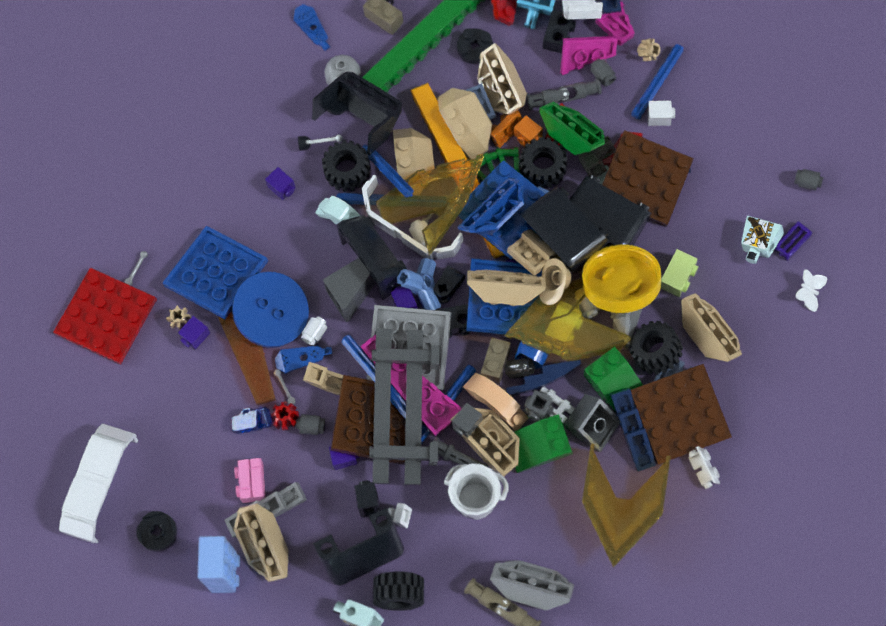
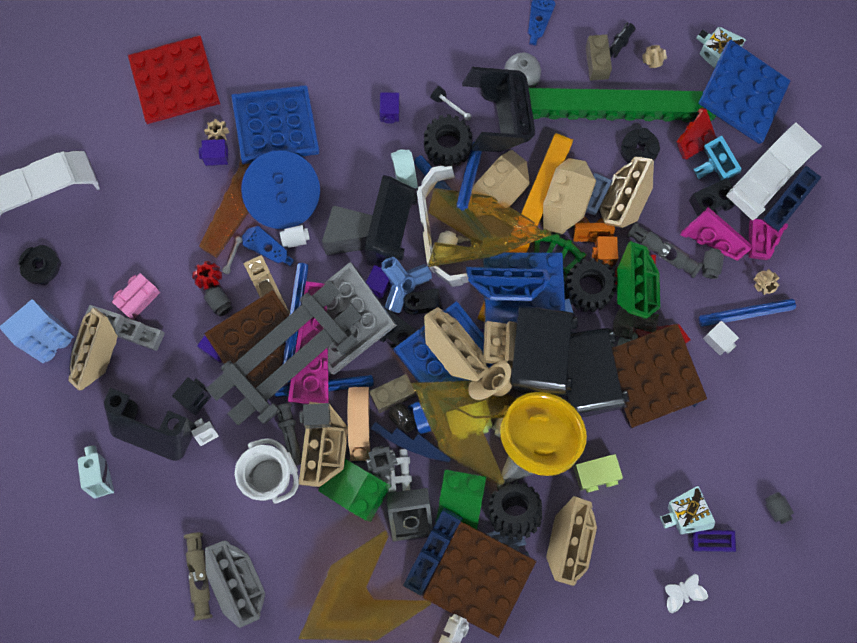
camera: 40 degrees right, 5 degrees up
(143, 254) = (215, 72): light grey hinge -> none
(251, 420) = (181, 254): clear blue piece -> none
(398, 591) = (137, 485): black tyre -> none

